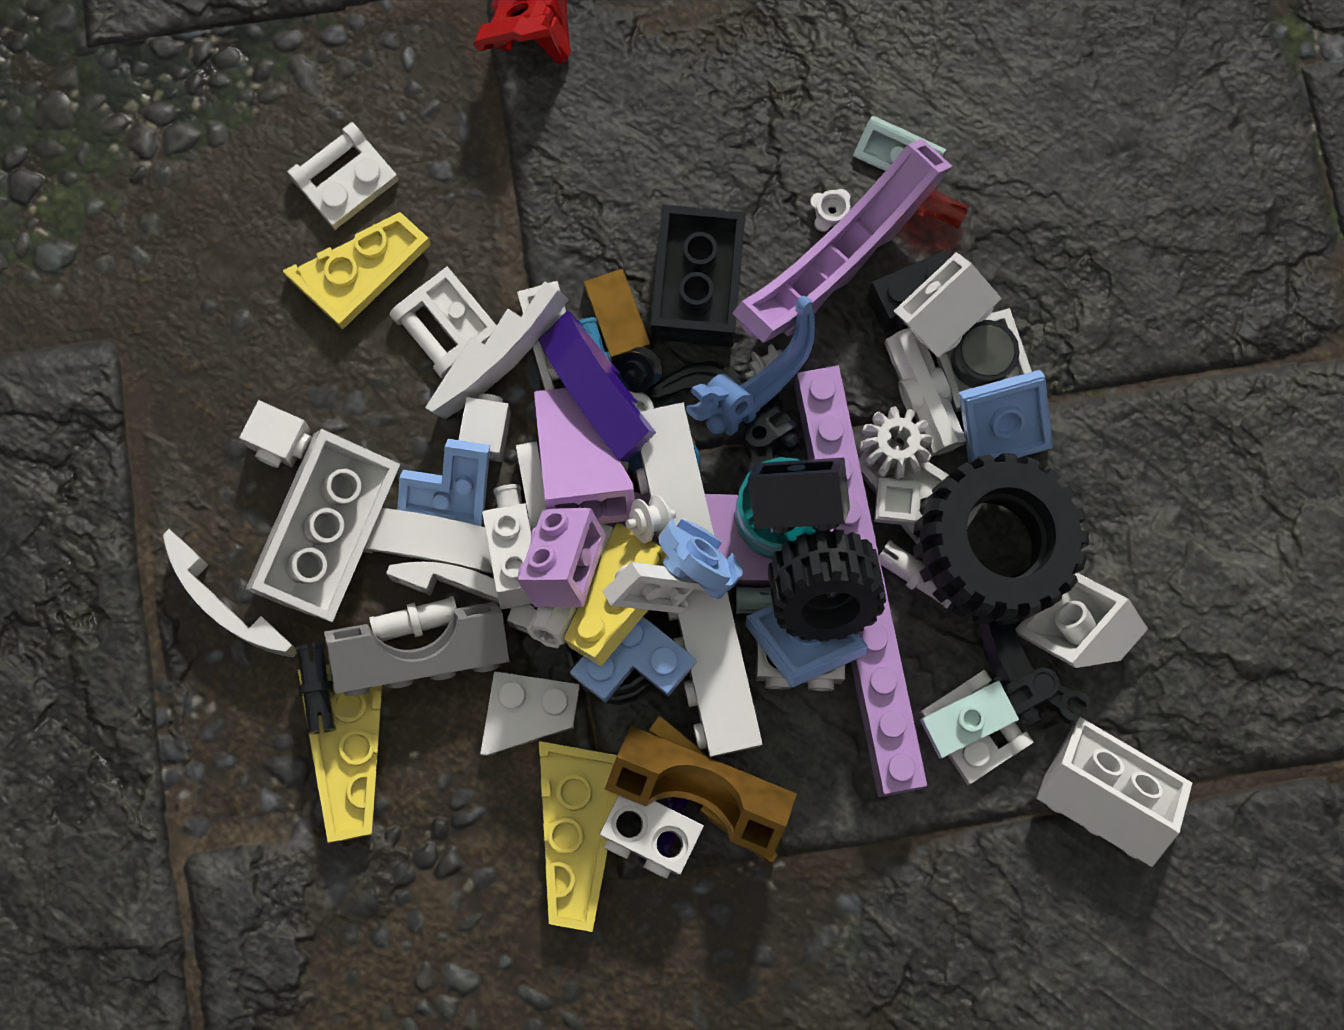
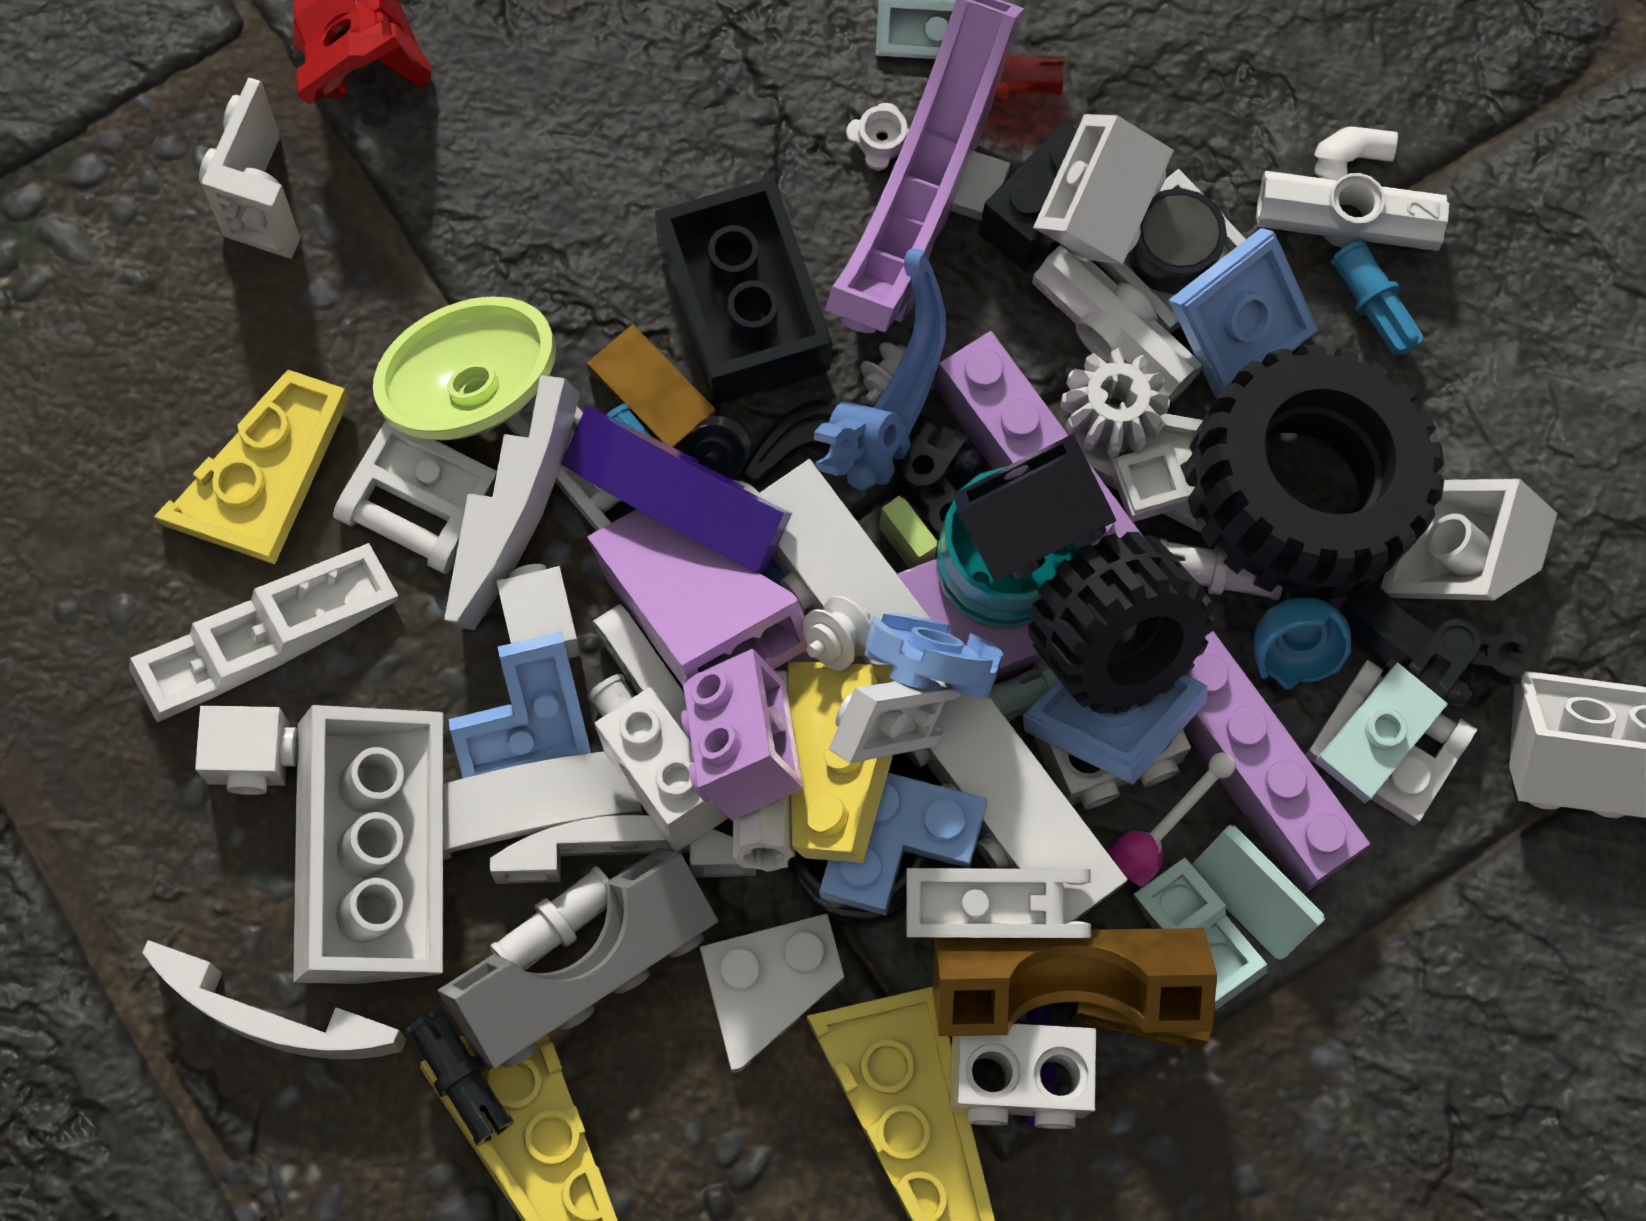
camera: 25 degrees left, 5 degrees down
(318, 368) = (263, 632): none -> white slope
(349, 187) = (199, 366): white plate -> none
(416, 76) = (241, 194): none -> white bracket
(505, 255) = (464, 368): none -> yellowish green dish
(671, 723) = (991, 903): none -> white hinge
(732, 469) = (907, 533): none -> yellowish green tile
(786, 729) = (1141, 852): none -> hinge
(800, 772) = (1186, 901): none -> light aqua slope
(847, 784) = (1257, 893): none -> light aqua slope
(881, 263) = (979, 181): none -> white tile
(946, 641) = (1301, 641): none -> dark azure hair
(1100, 443) = (1377, 298): none -> dark azure axle
(1129, 335) = (1351, 144): none -> white arm
(1134, 393) = (1389, 213): none -> white piece

